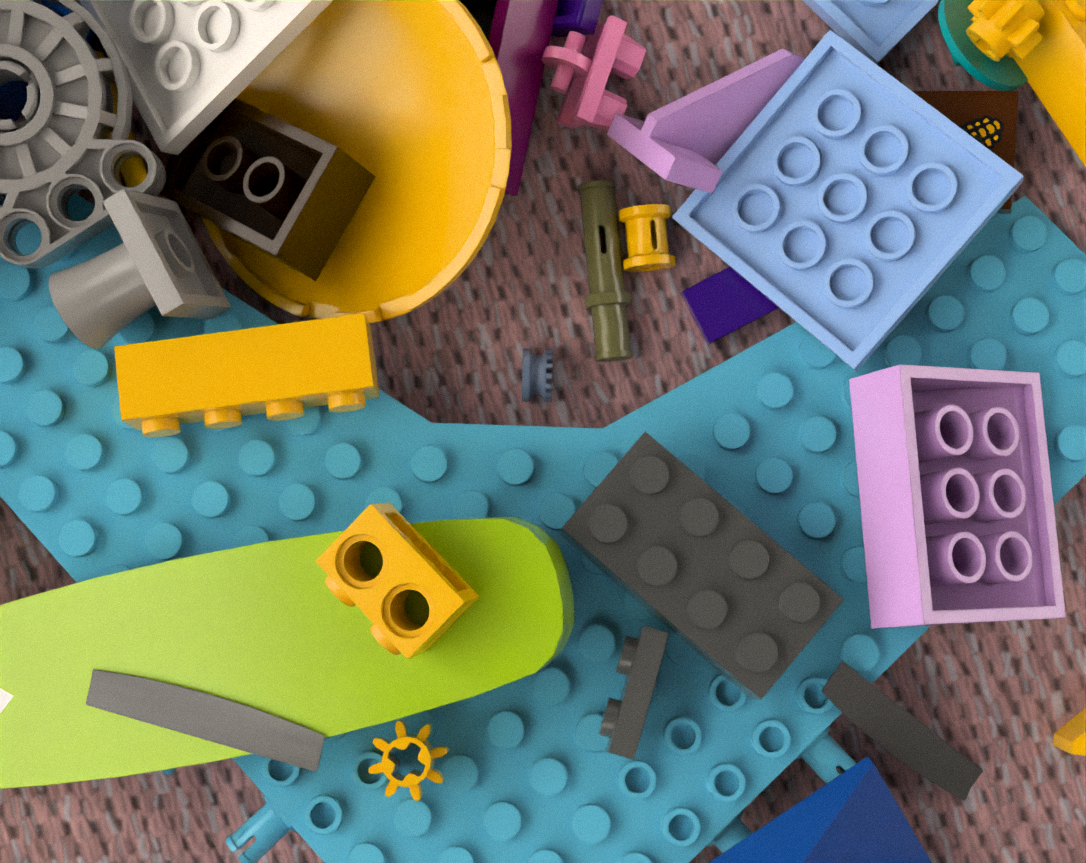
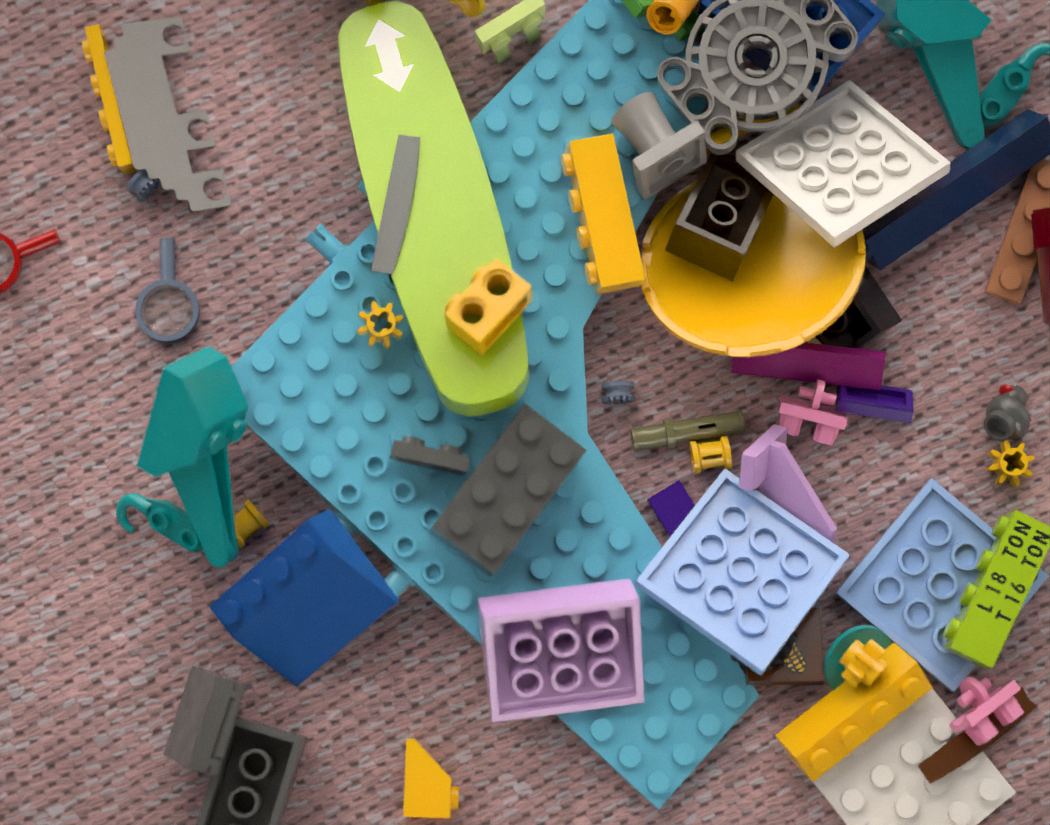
camera: 85 degrees right, 5 degrees down
(900, 732) = (411, 631): dark grey sticker -> none

